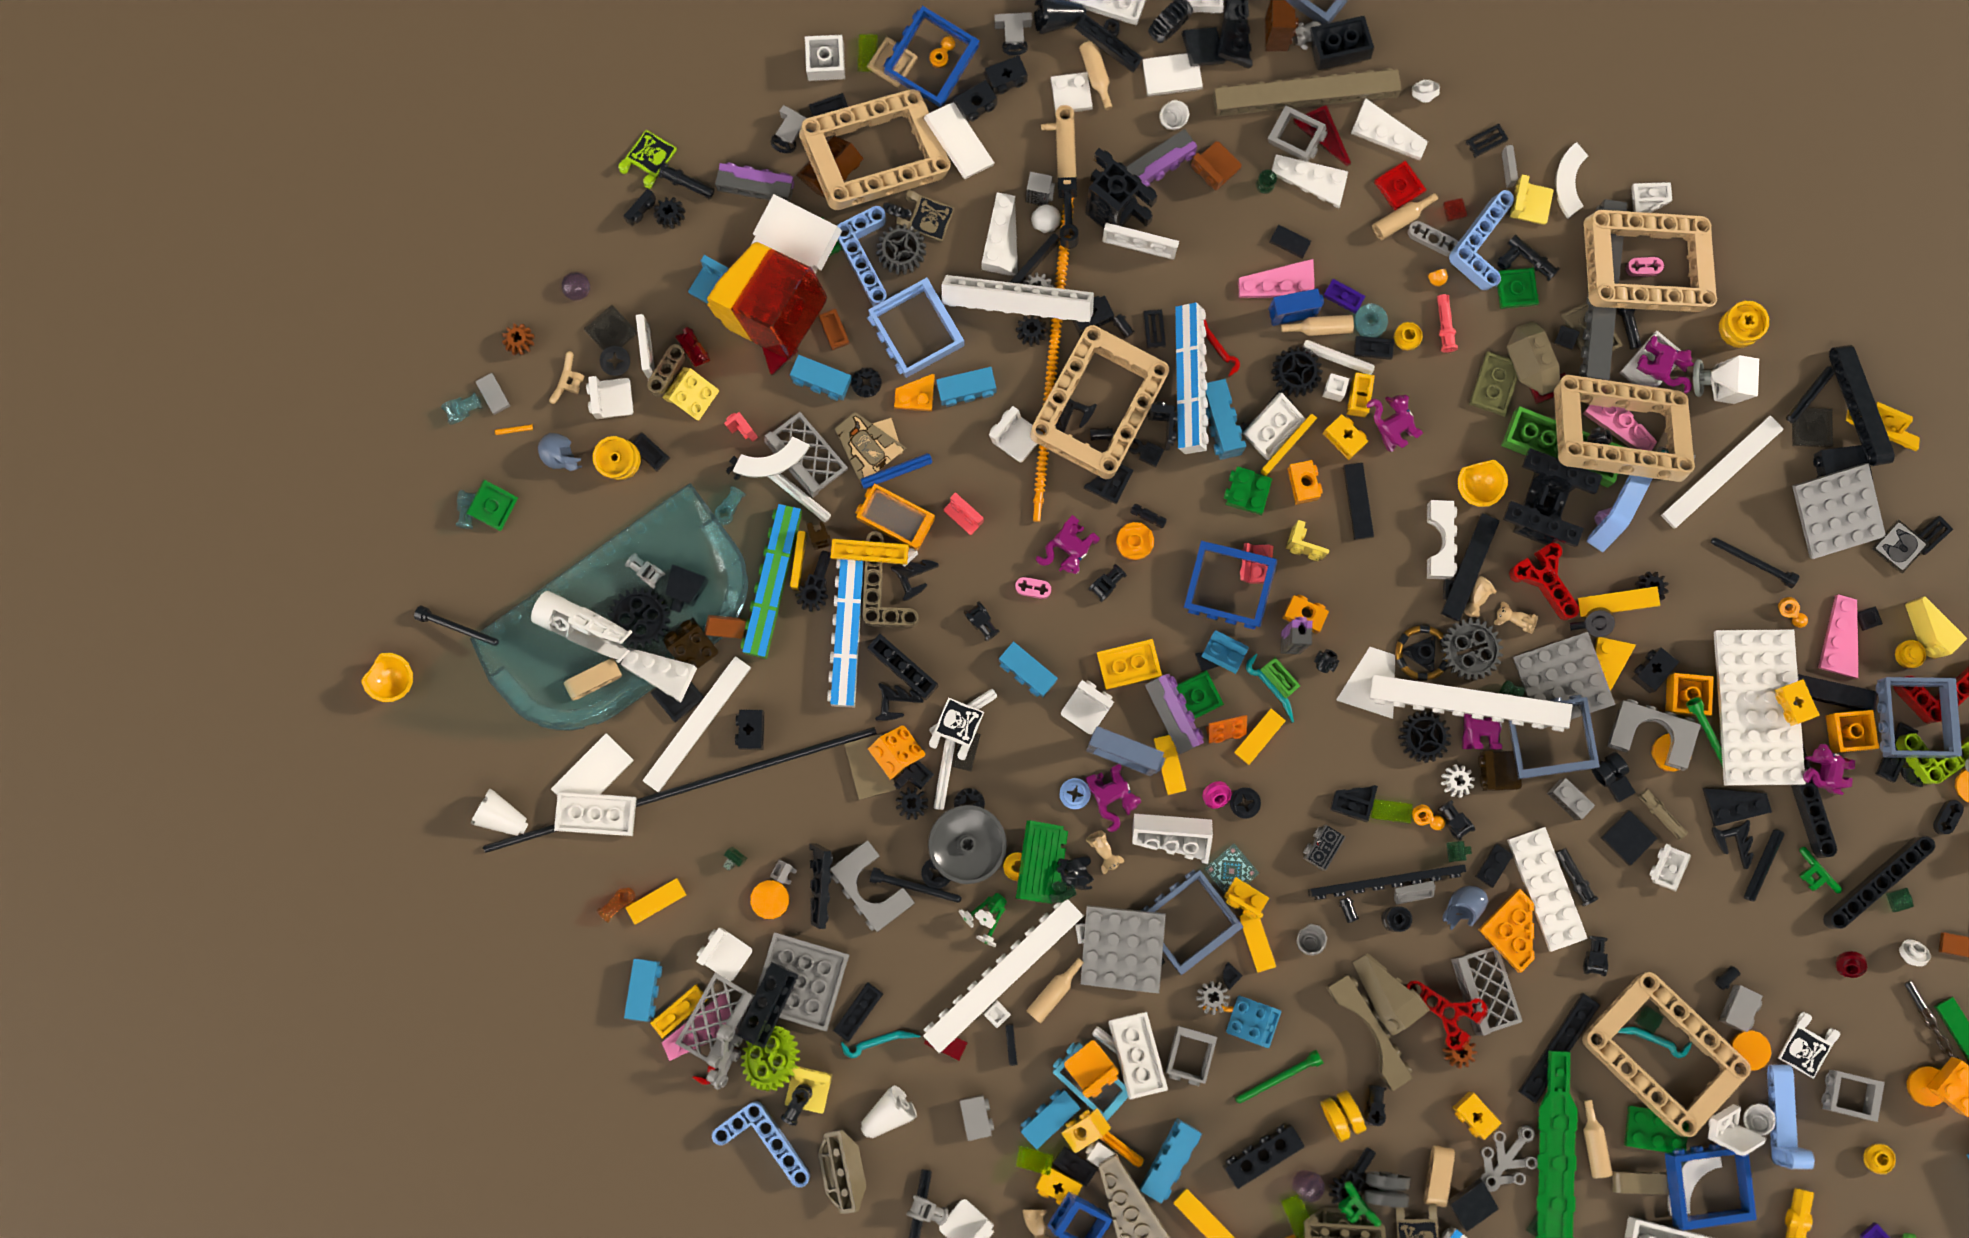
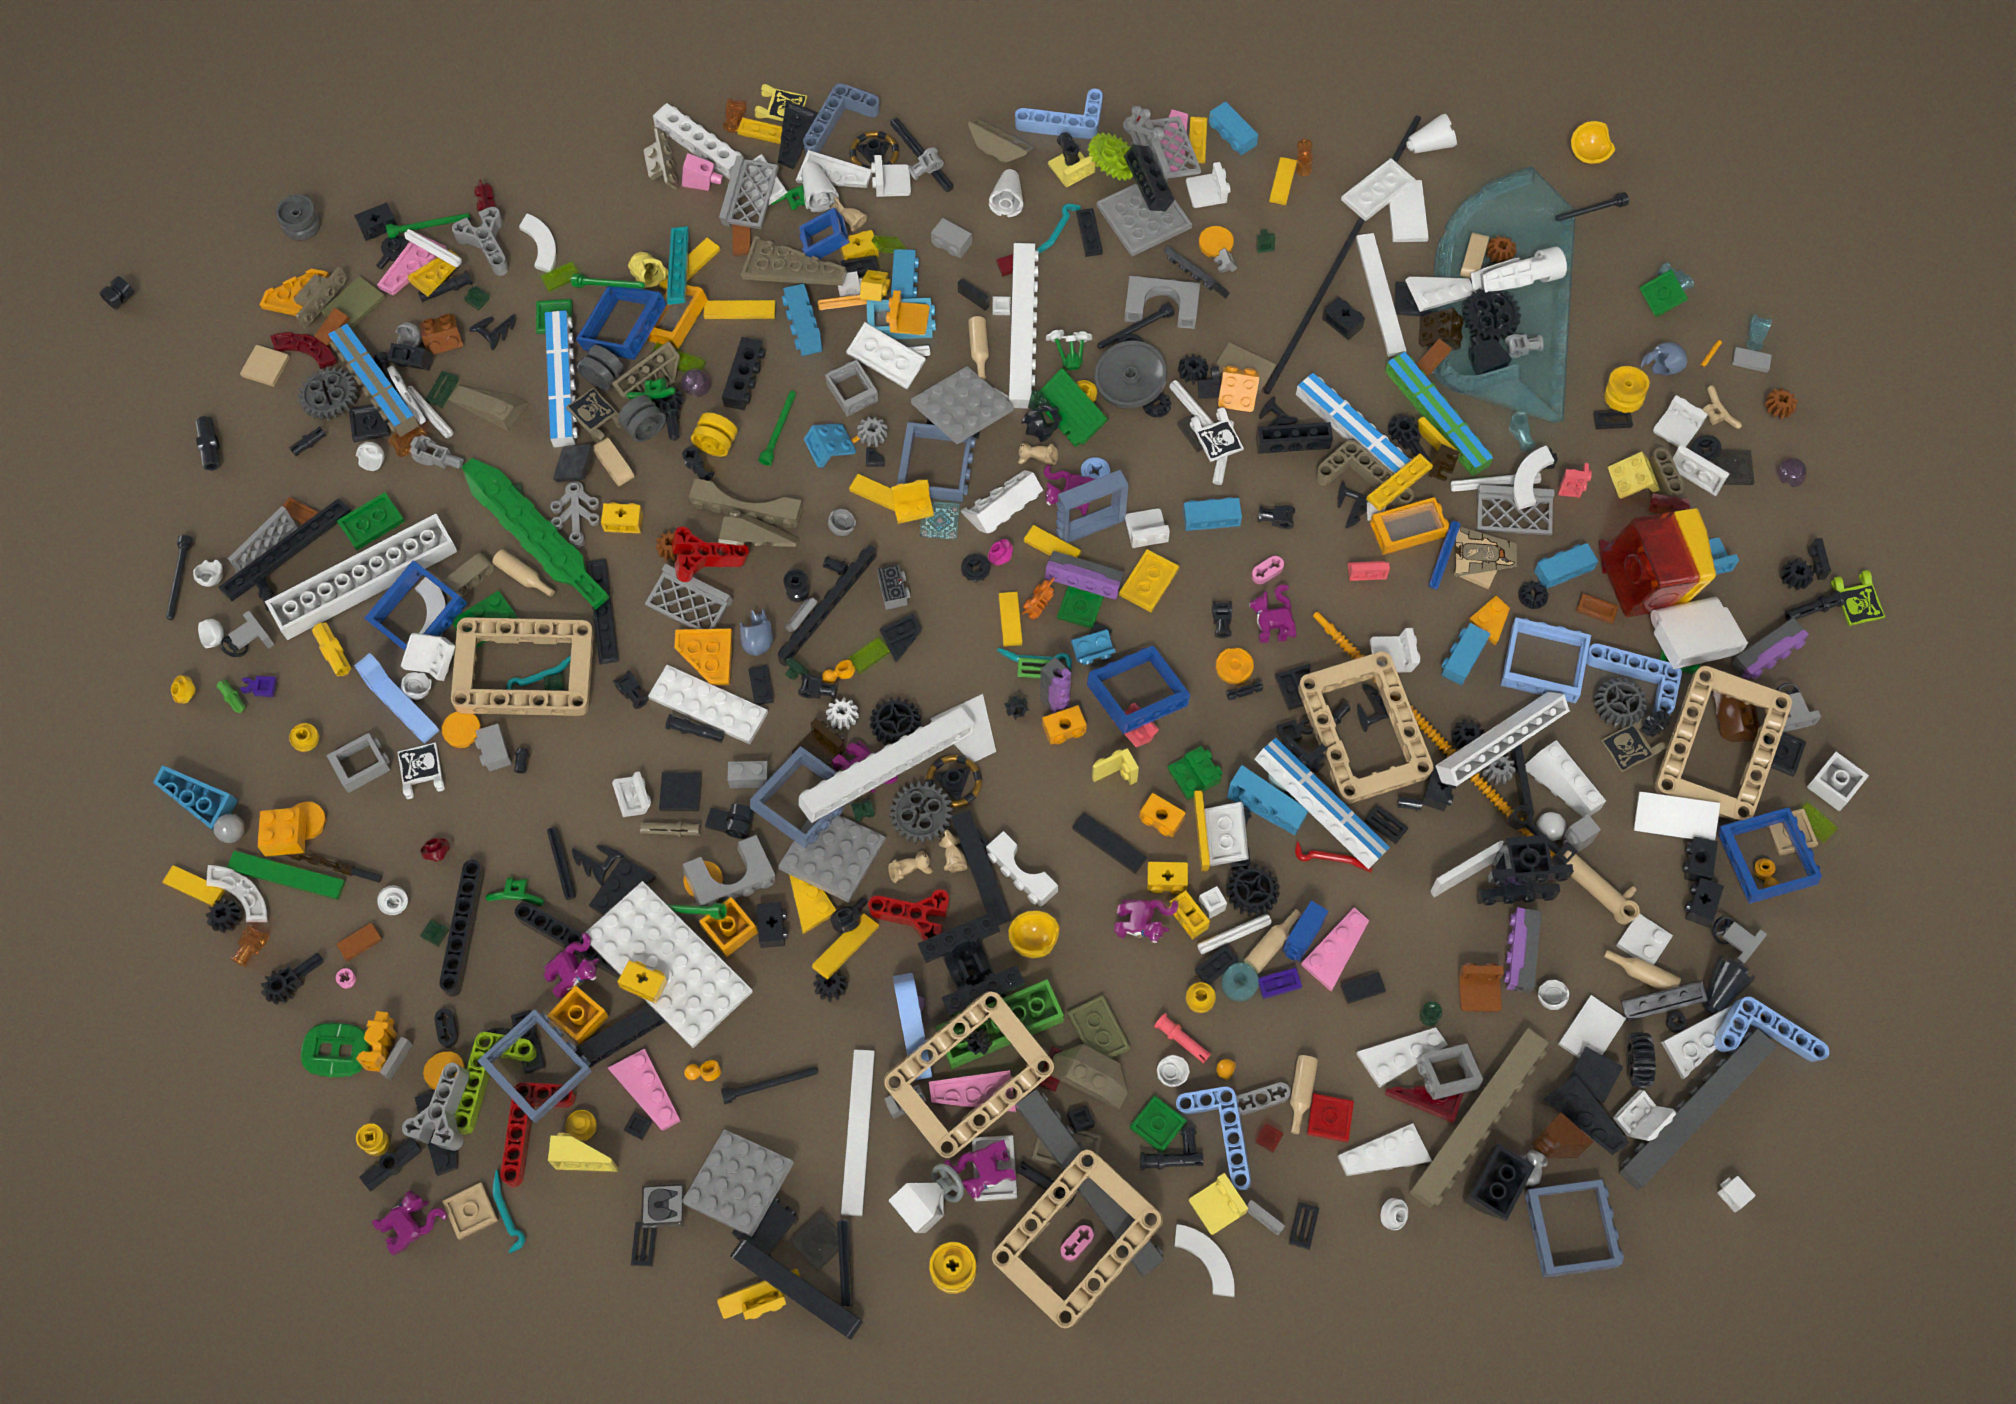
camera: 135 degrees right, 15 degrees down
(568, 656) = (1501, 249): none -> dark orange gear
(1476, 308) = (1173, 1071): none -> white hair
(1650, 196) = (1129, 1307): white wing -> none

